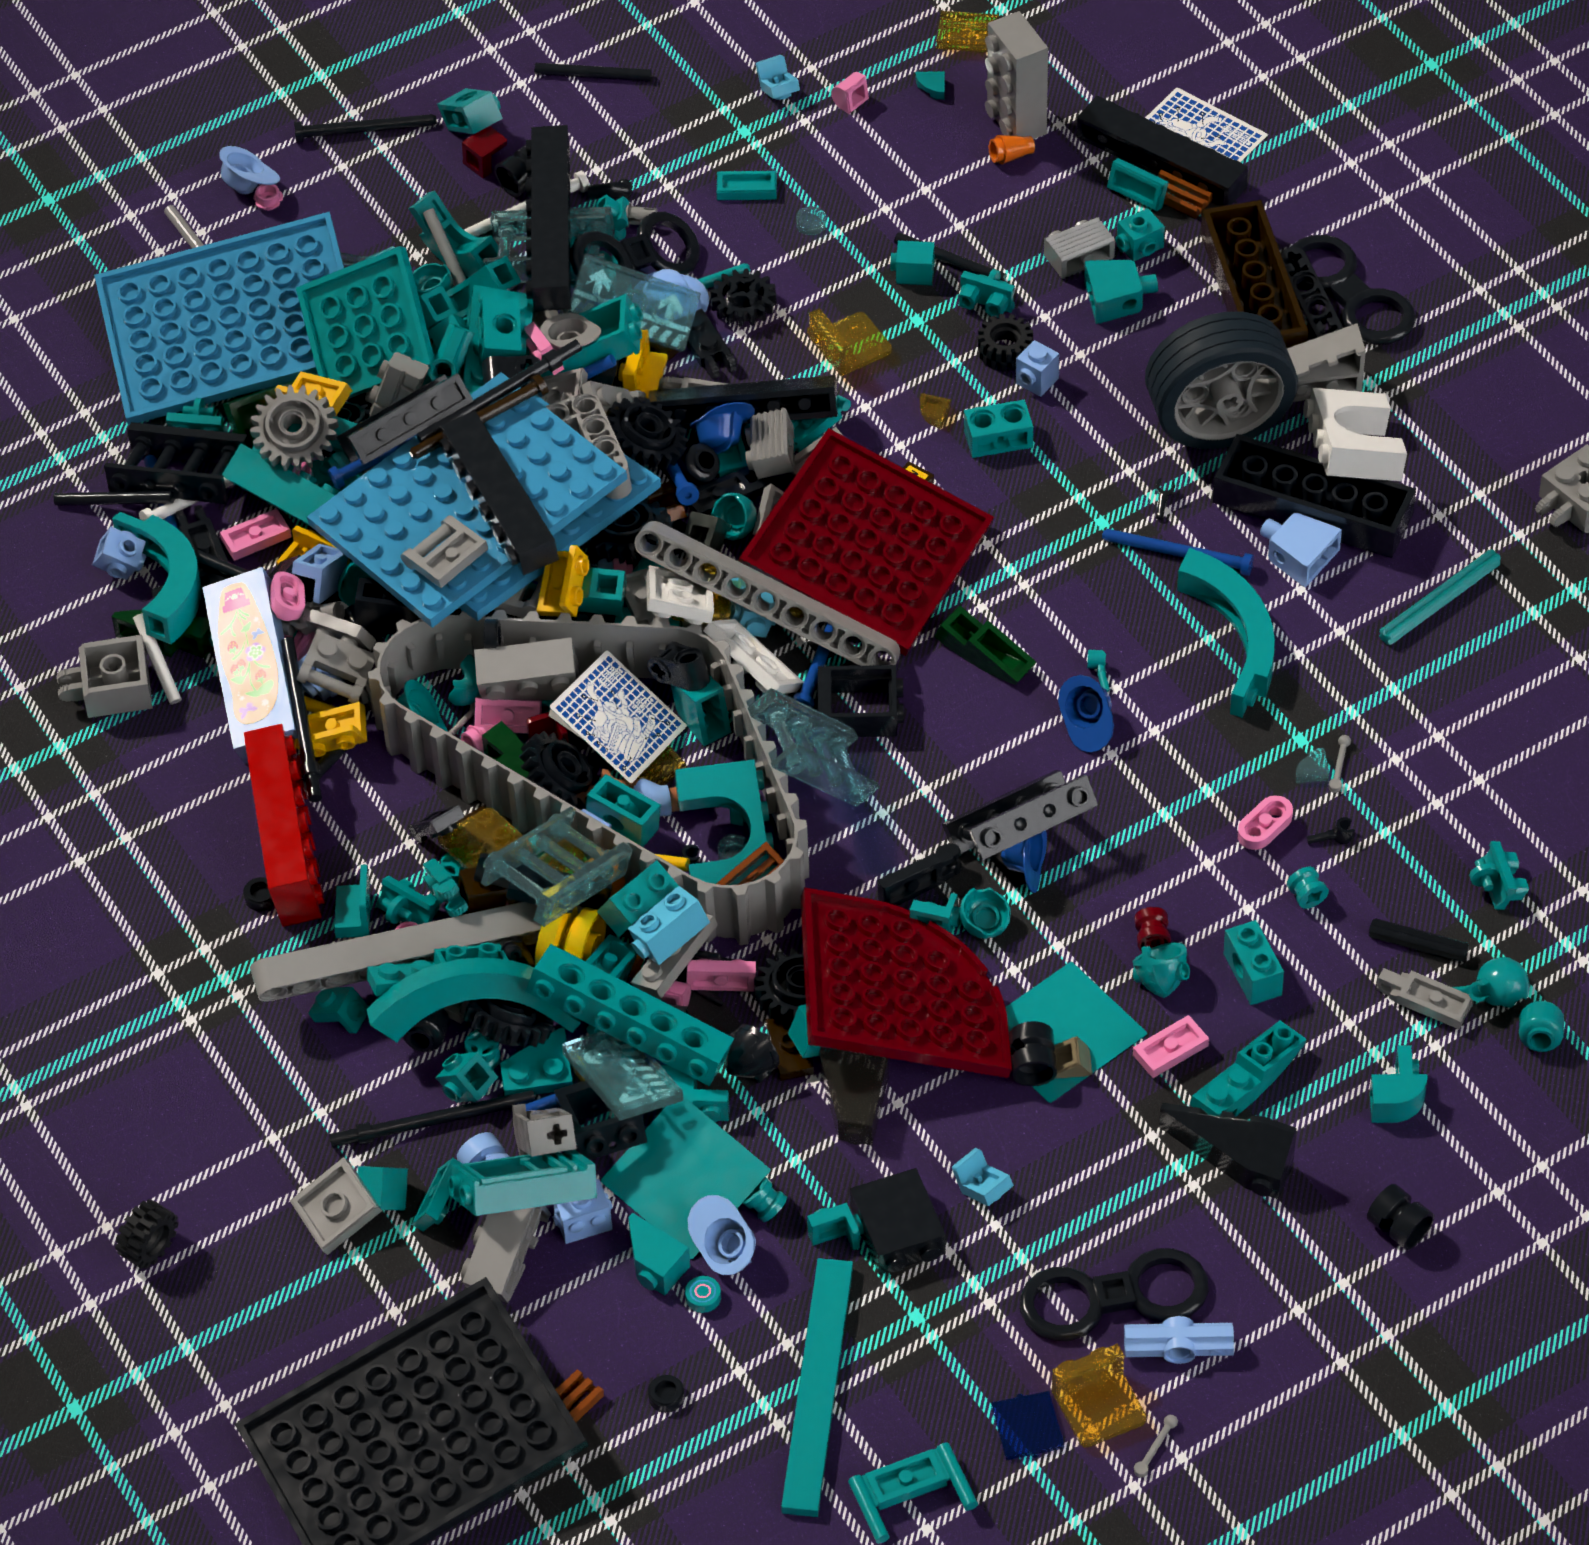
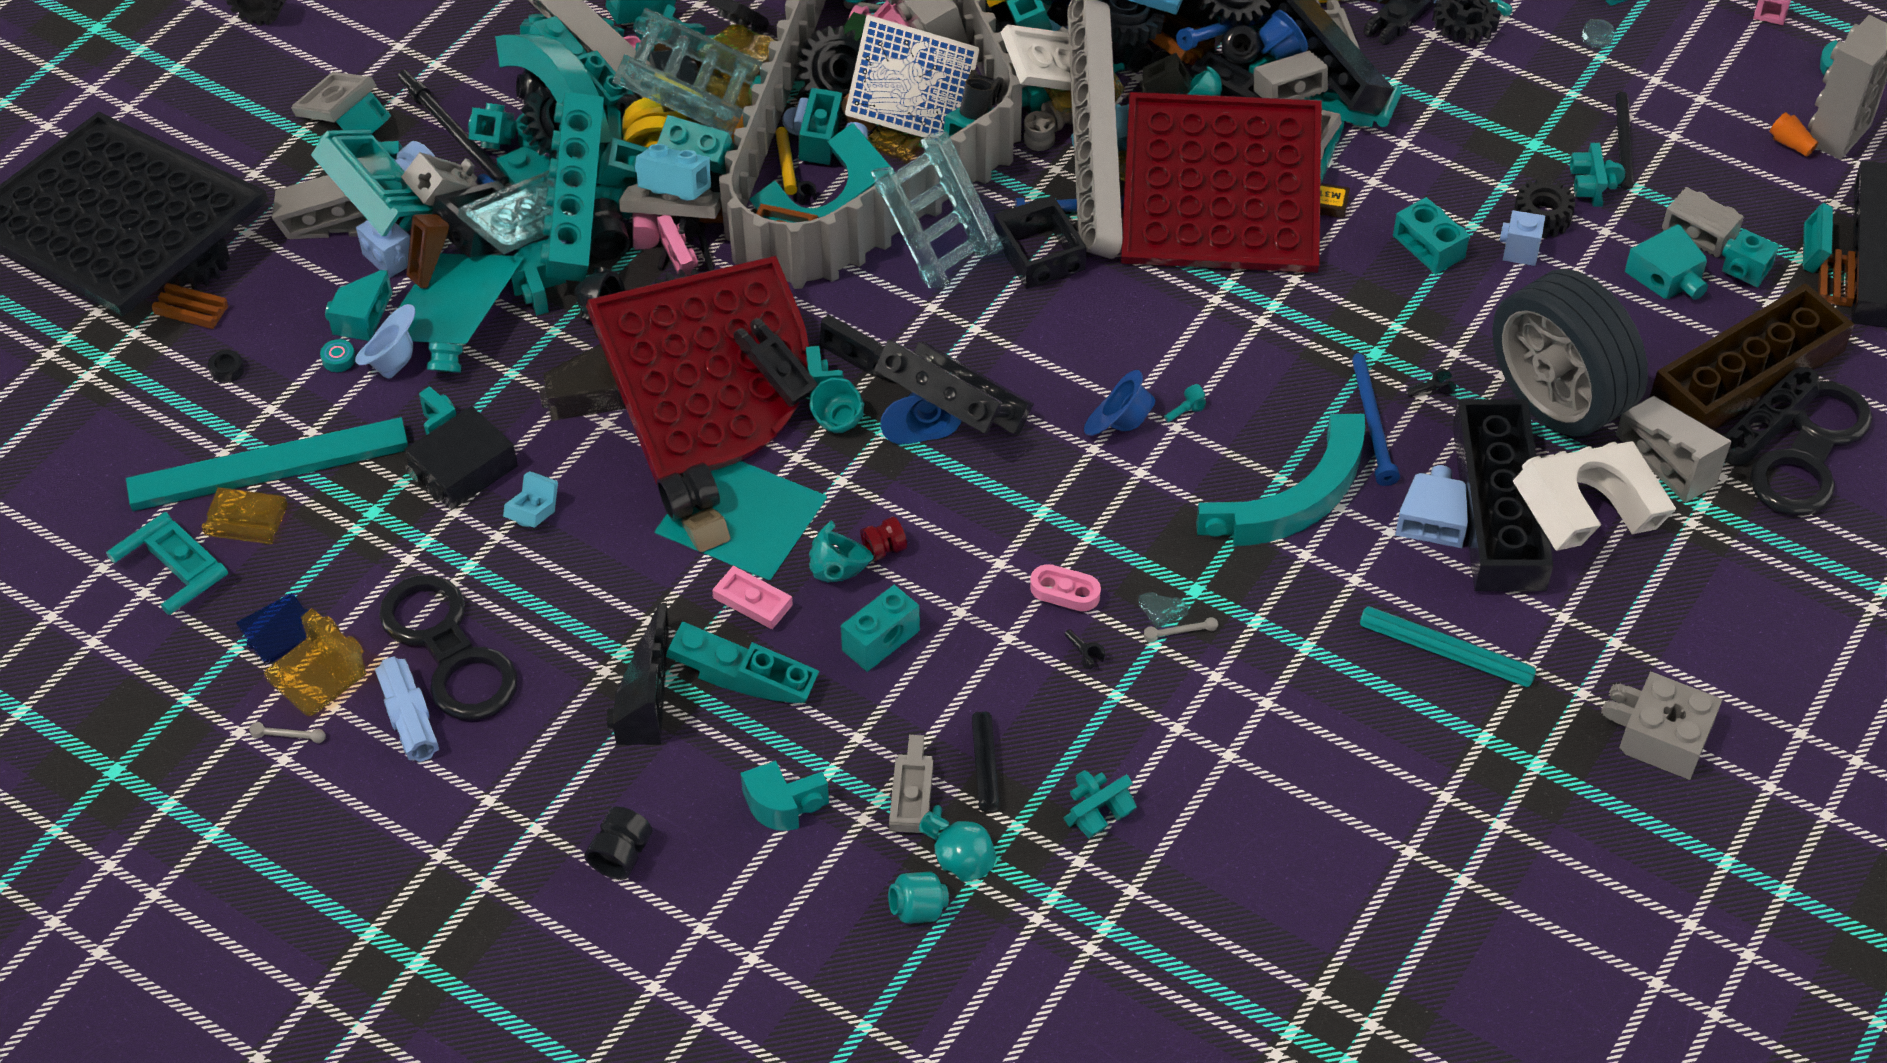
camera: 65 degrees right, 0 degrees up
(612, 1153) = (426, 243): none -> reddish brown slope
(754, 657) = (1034, 146): white plate -> none
(848, 342) = (1462, 101): clear yellow bracket -> none
(874, 1420) = (244, 515): none -> clear yellow plate
(914, 262) = (1594, 113): teal brick -> none
(924, 934) = (776, 362): none -> black hinge
(934, 409) = (1430, 187): clear yellow tile -> none
(984, 646) = (1159, 309): dark green slope -> none
(1307, 887) = (999, 645): teal wheel -> none

